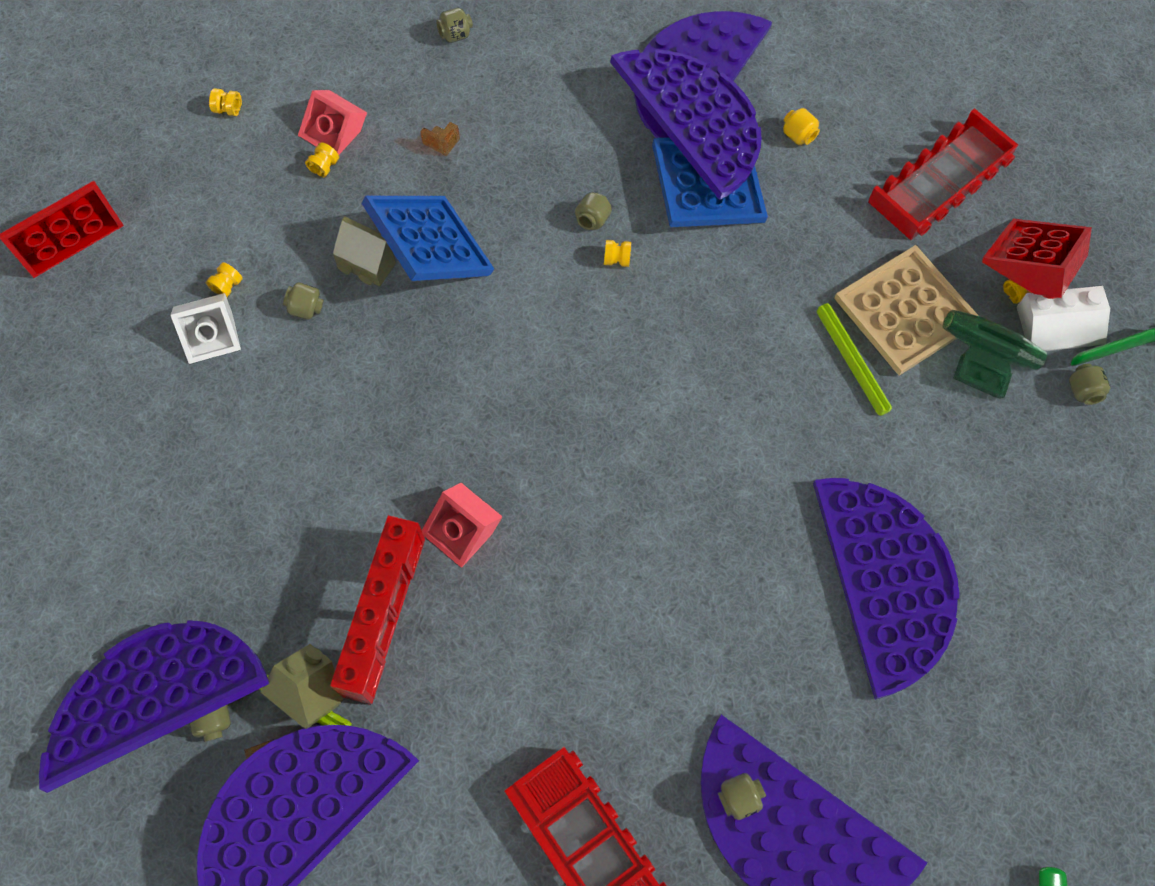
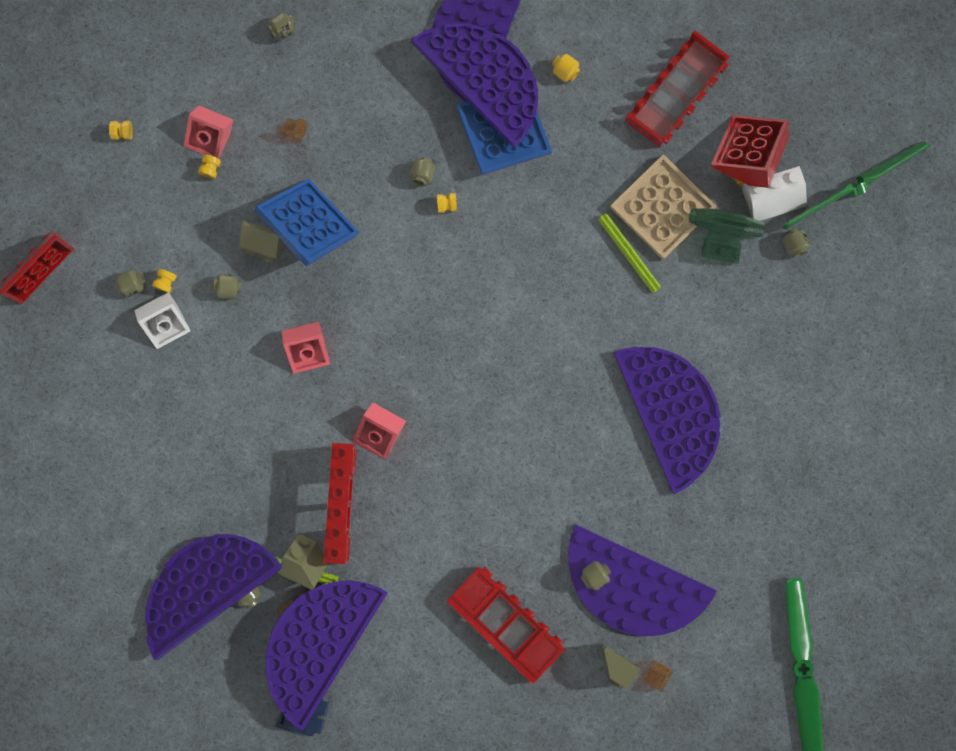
camera: 15 degrees left, 15 degrees up
(178, 274) = (129, 282): none -> olive head
(387, 396) = (305, 347): none -> coral slope

